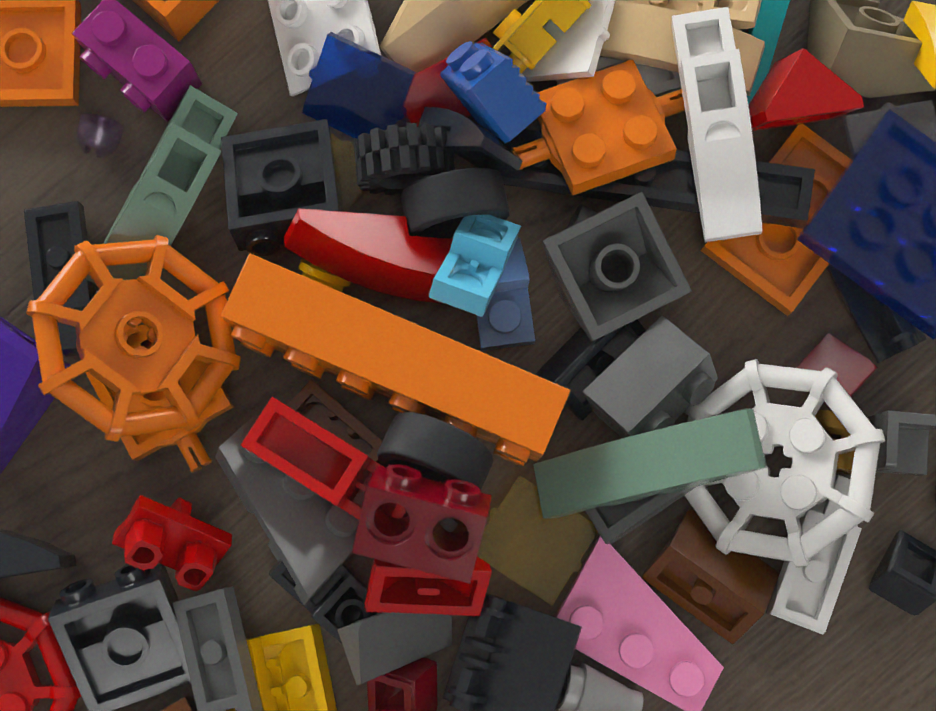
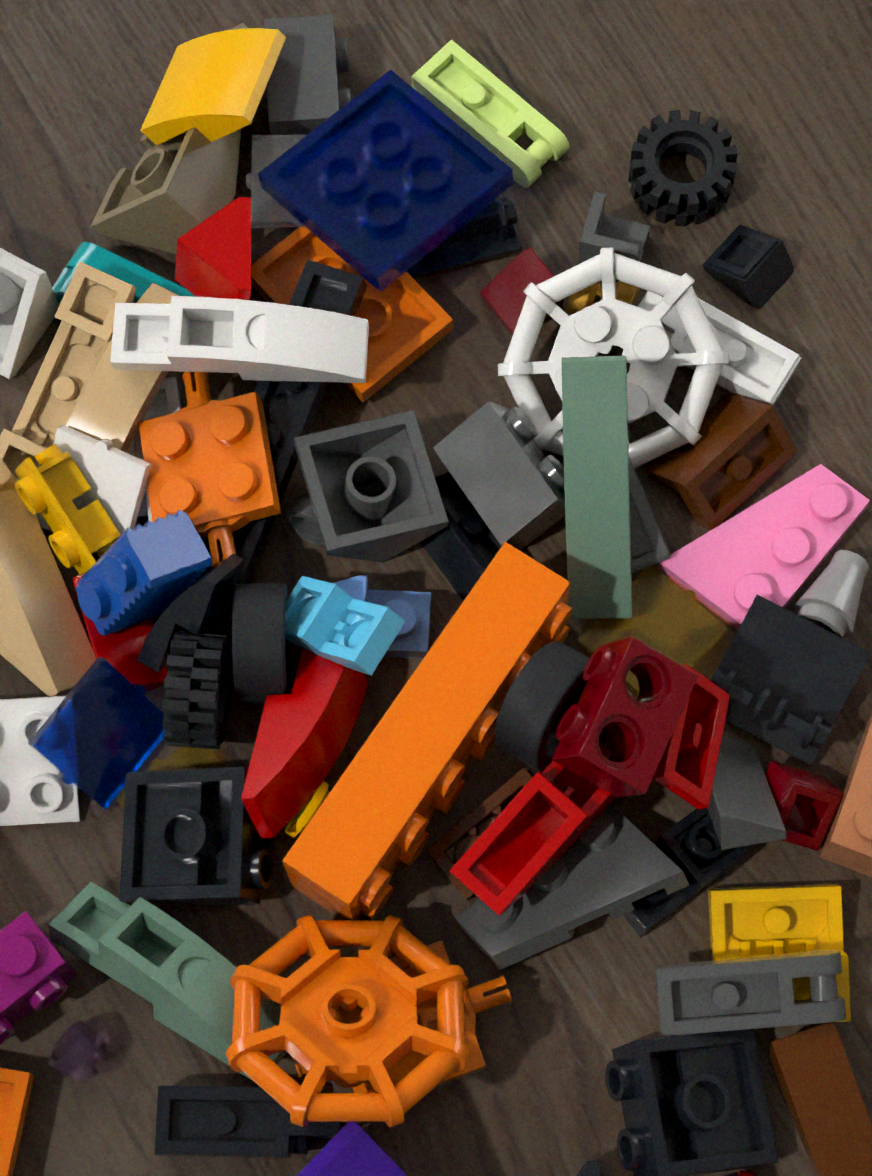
camera: 75 degrees left, 10 degrees down
(172, 538) = (588, 1028): red hips -> none

